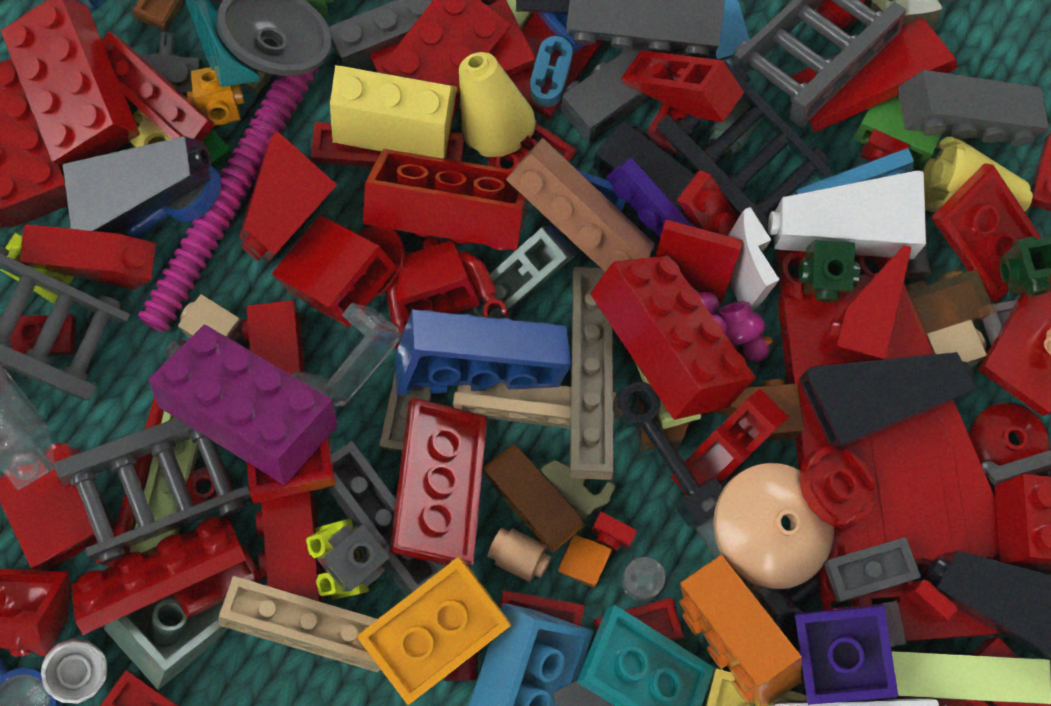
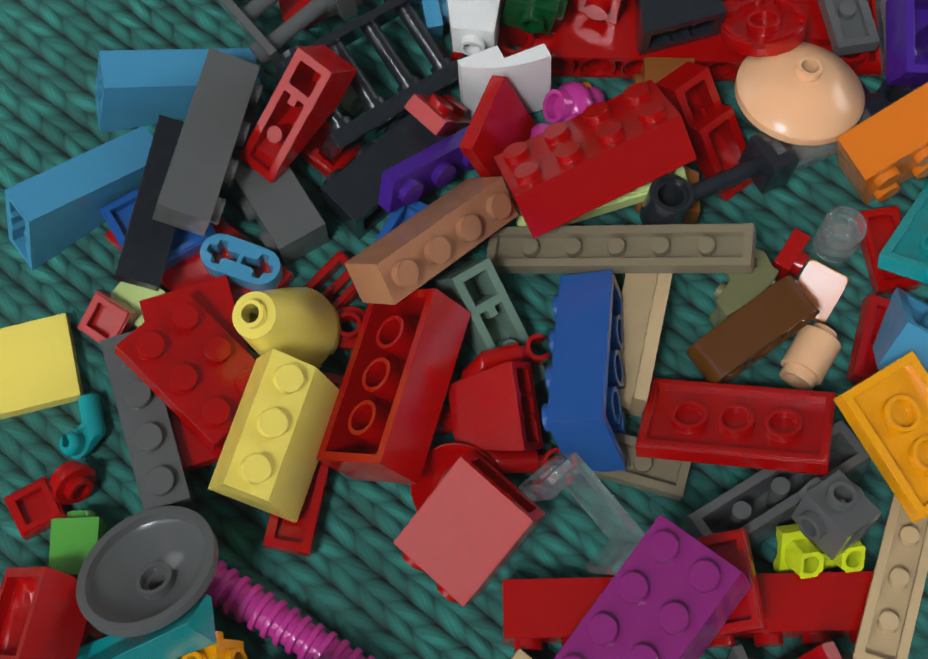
camera: 85 degrees left, 5 degrees down
(282, 198) = (374, 584): red slope -> none

